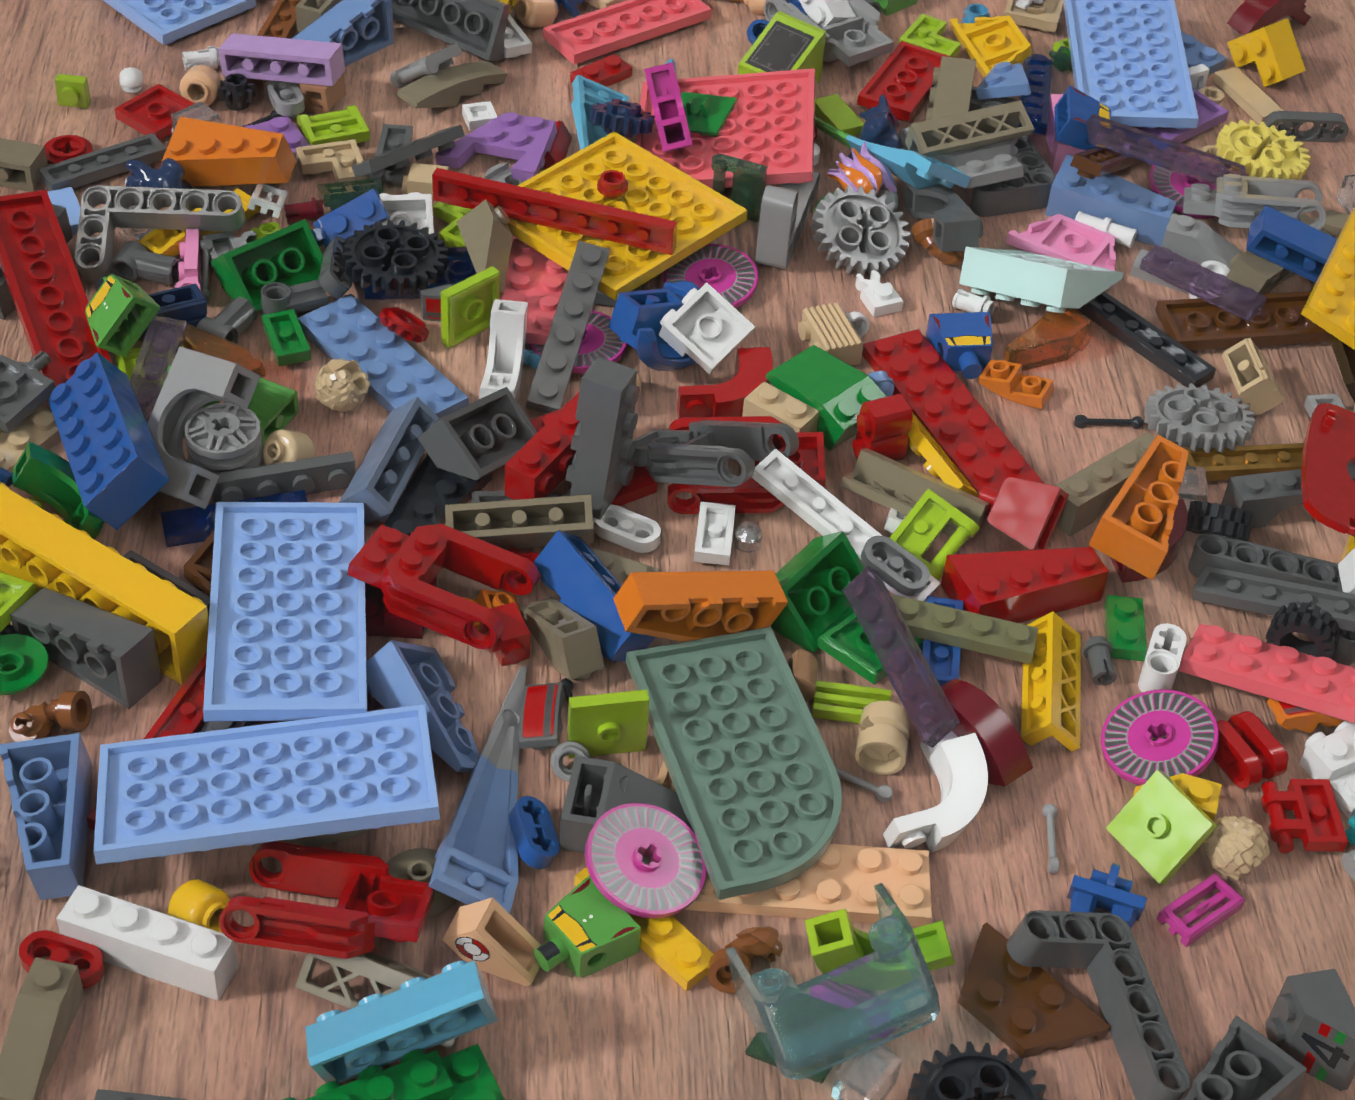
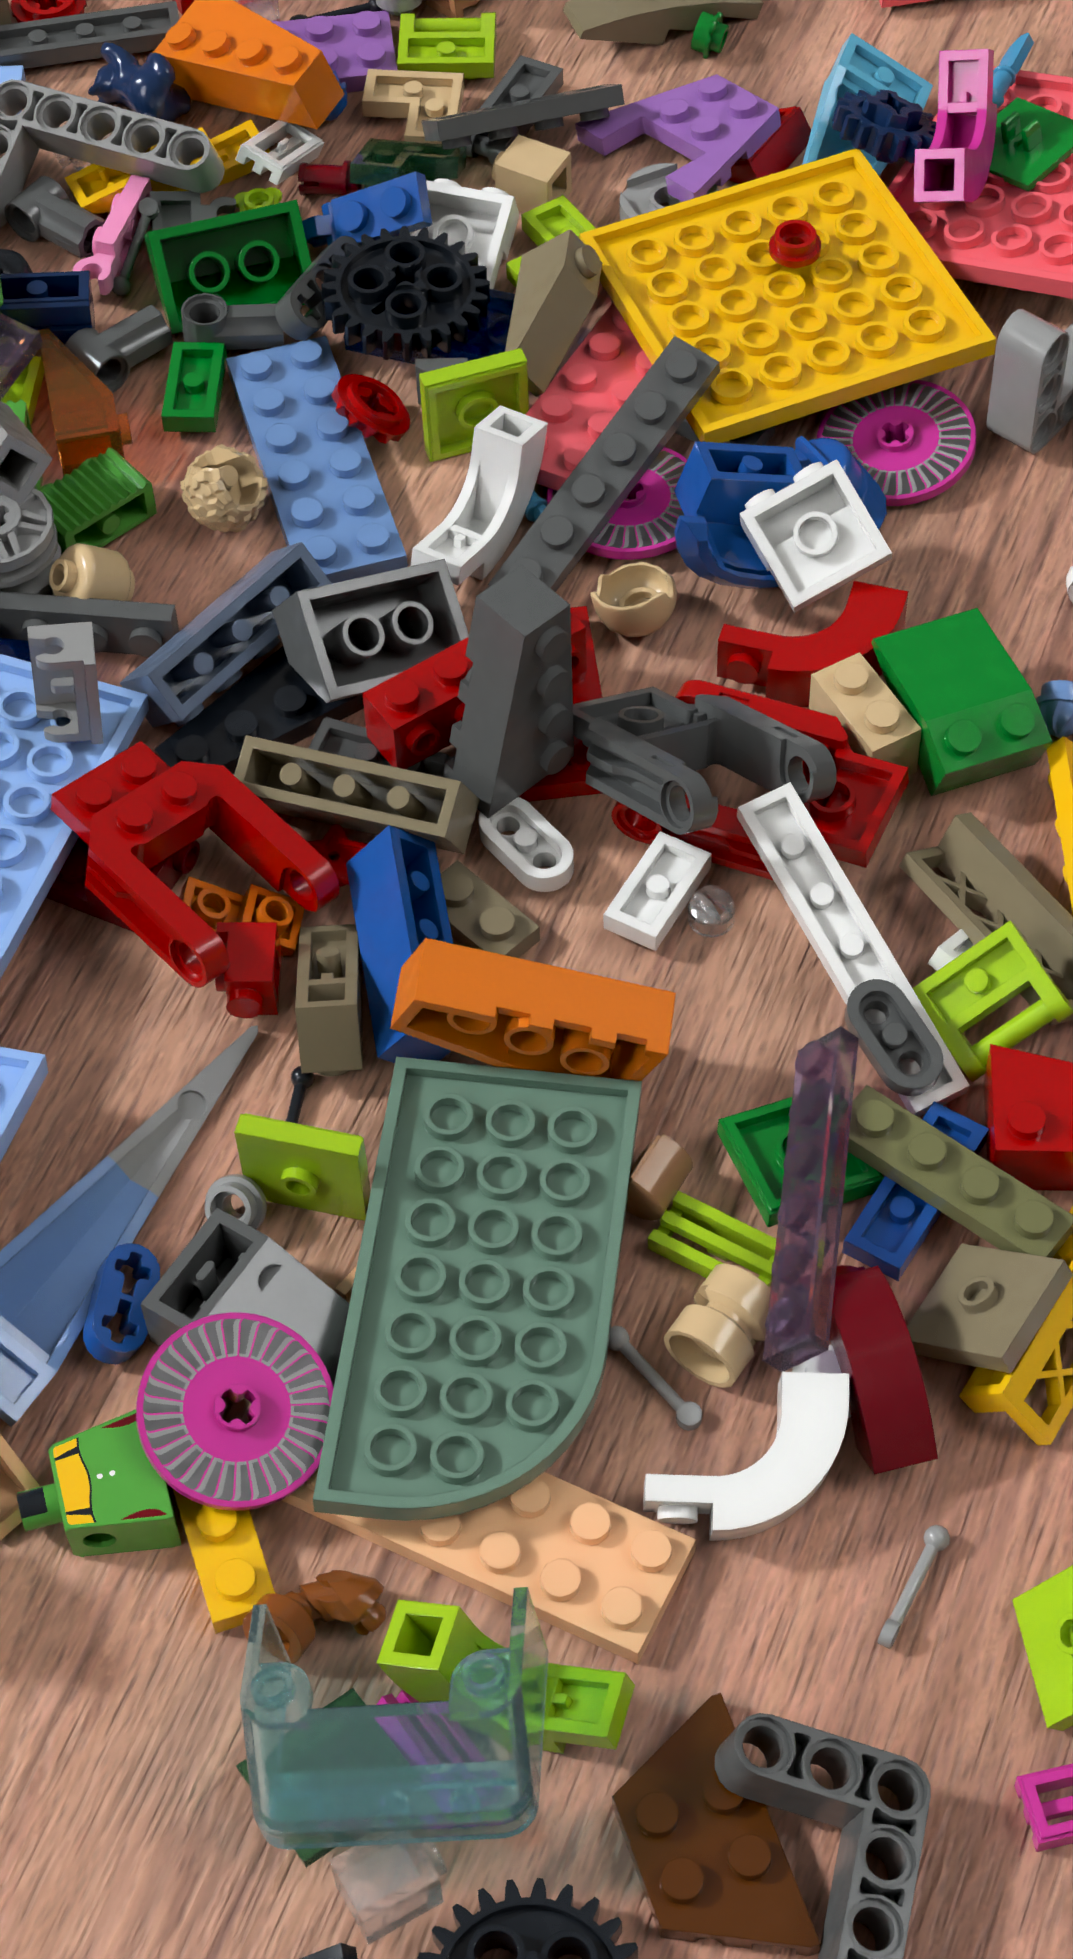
camera: 30 degrees right, 10 degrees up
(327, 498) = (66, 680): none -> light grey hinge
(416, 675) = (84, 1016): medium blue wedge -> none
(478, 114) = (678, 67): white plate -> none
(485, 92) = (709, 34): none -> green plate
(541, 716) = (209, 1135): slope -> none
(557, 211) = (679, 275): red plate -> none
(605, 71) = (919, 33): red plate -> none
(748, 182) = (1027, 280): clear green plate -> none
(814, 589) = (742, 1037): green slope -> none
(832, 332) = (1032, 595): tan brick -> none
(884, 427) = (1012, 788): red brick -> none
(1019, 682) = (987, 1307): none -> dark tan plate
(1107, 893) = (903, 1710): blue hips -> none

